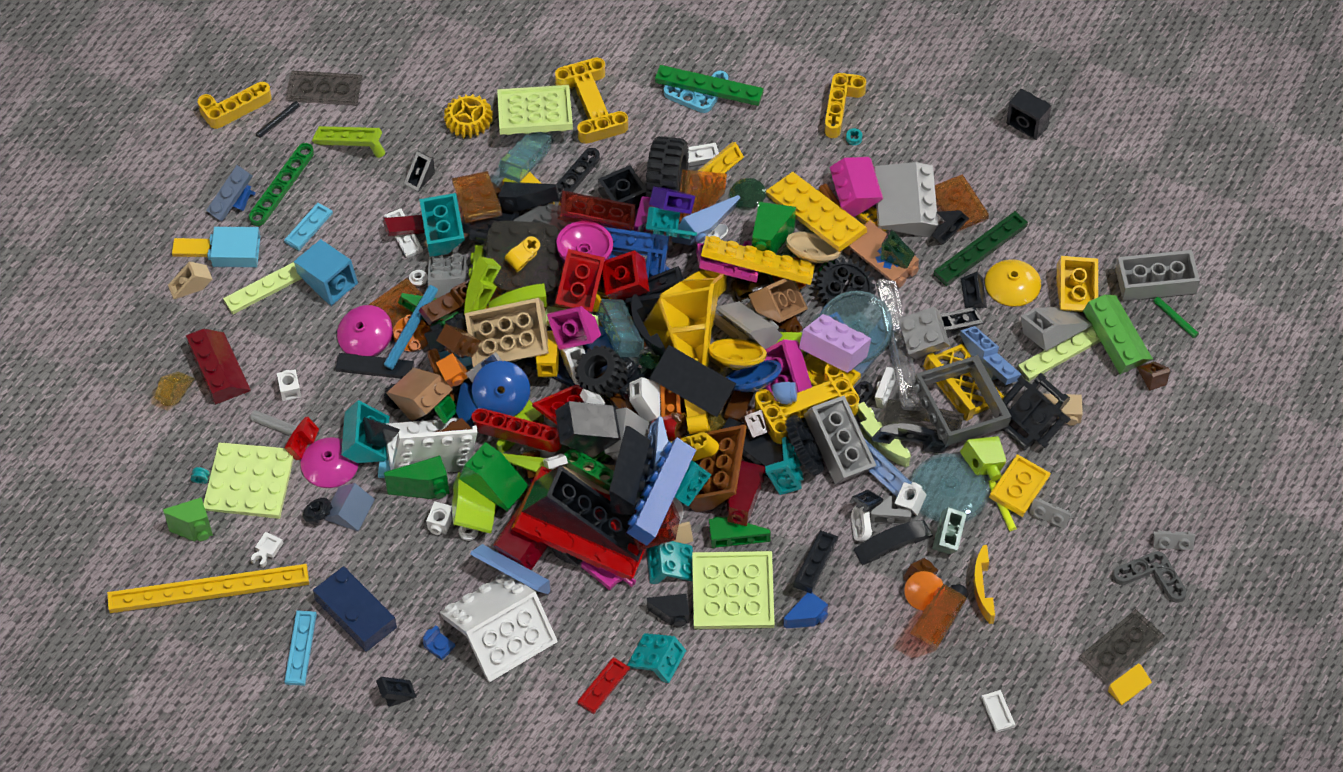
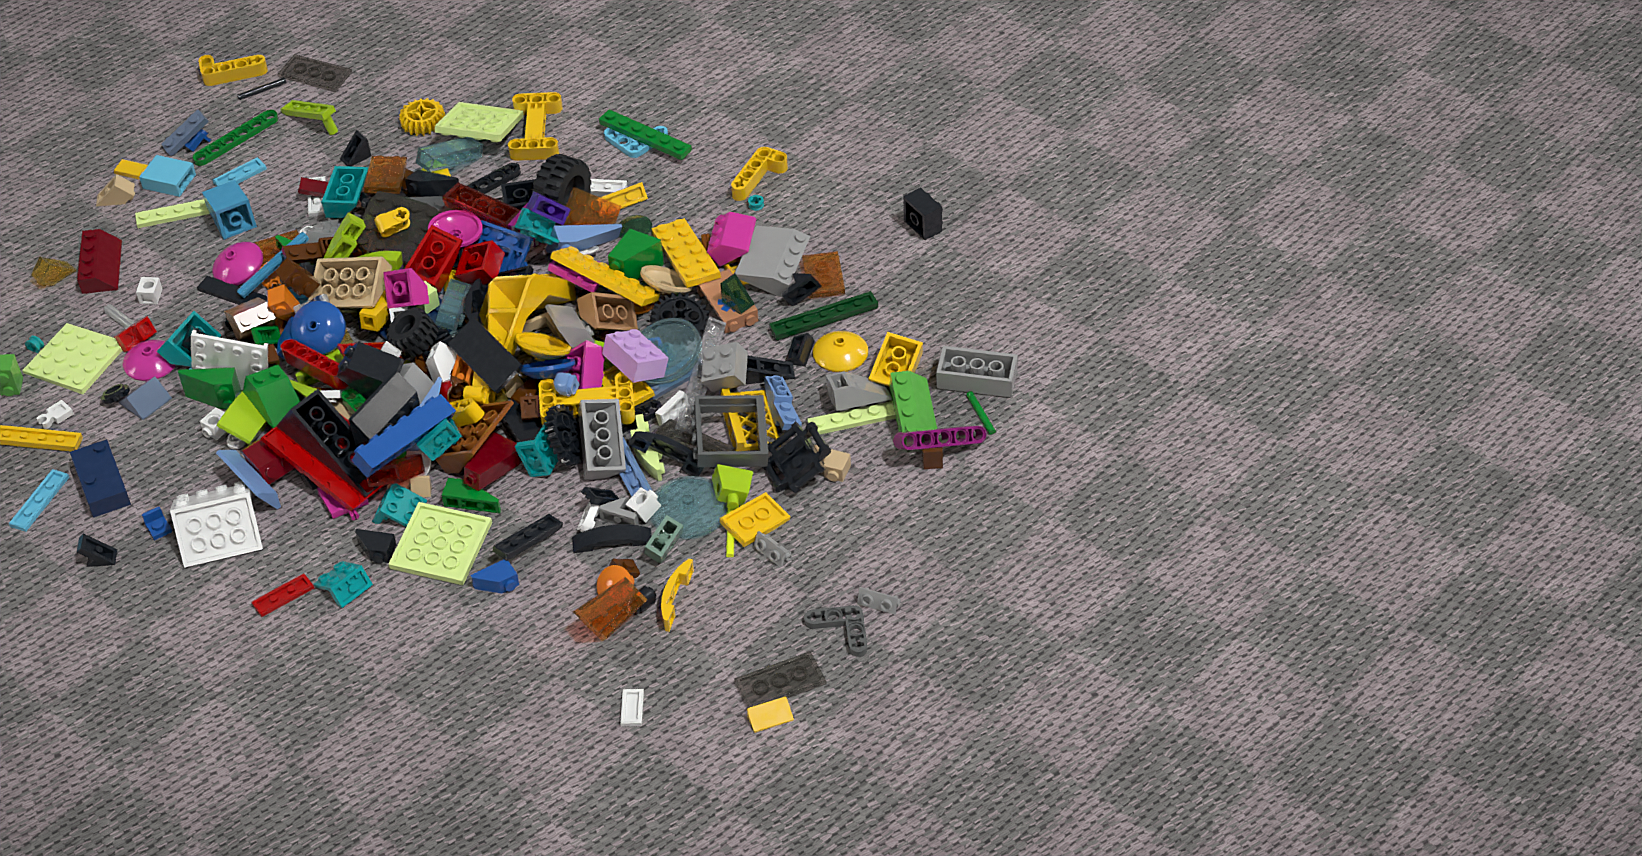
camera: 20 degrees right, 10 degrees down
(1158, 356) = (931, 437): none -> magenta beam

